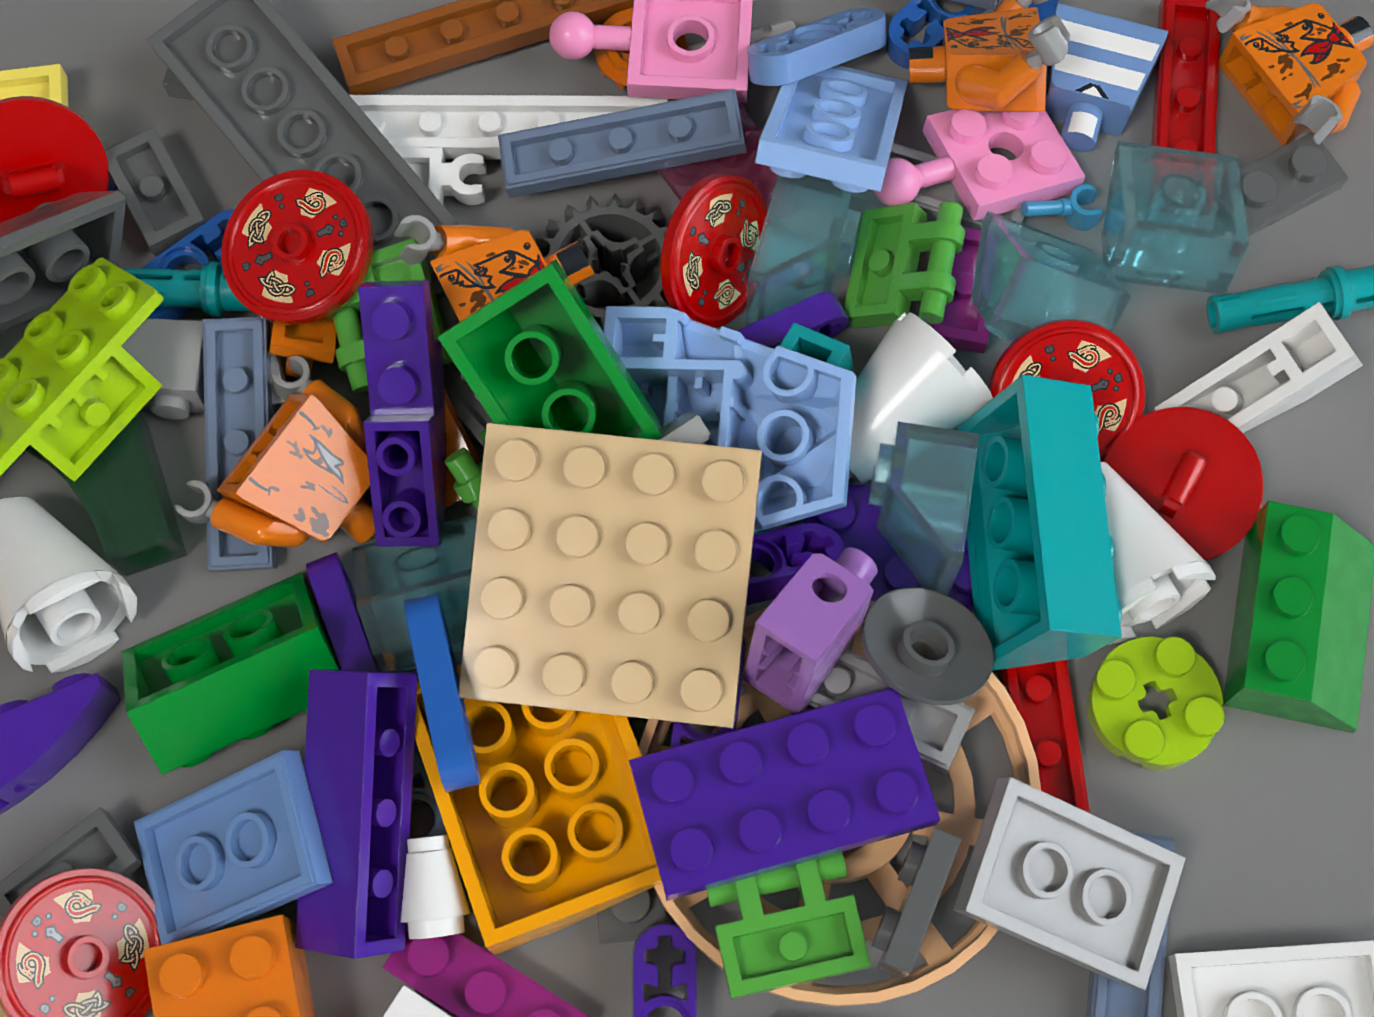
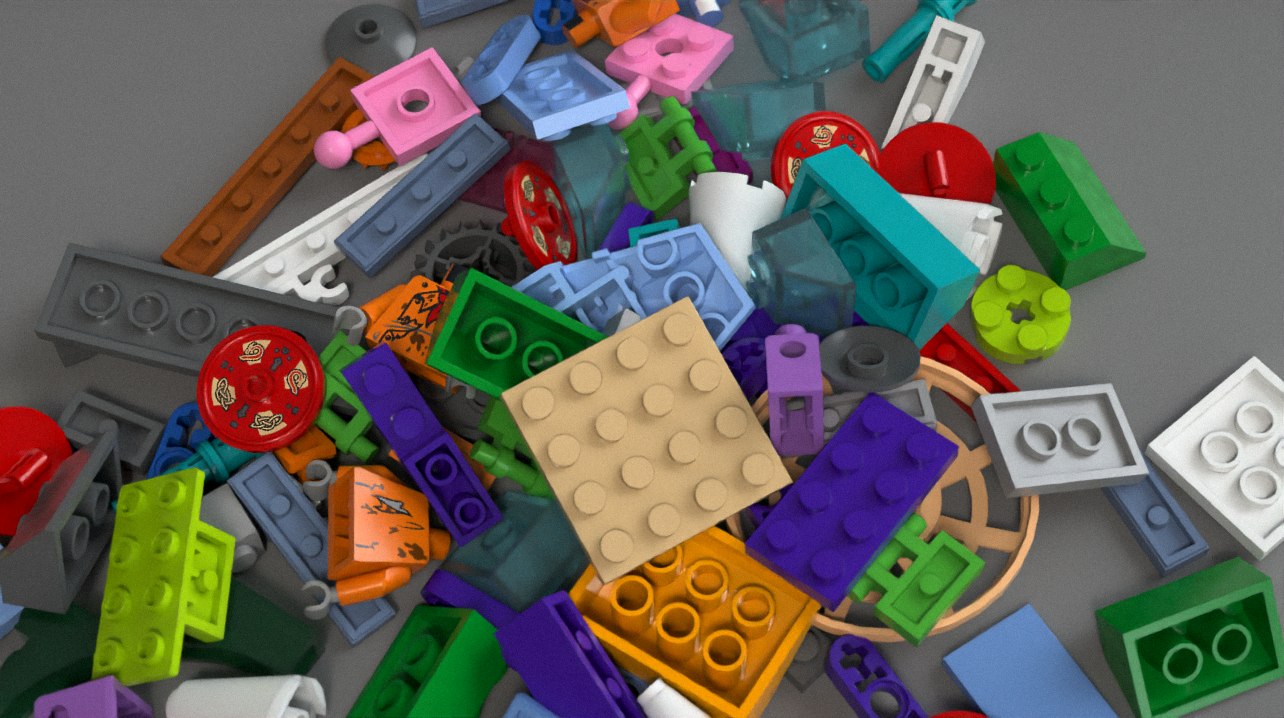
camera: 35 degrees left, 10 degrees down
(440, 692) = (592, 586): blue beam -> none
(903, 931) = (987, 526): dark grey plate -> none
(1069, 207) = (737, 62): dark azure hand -> none

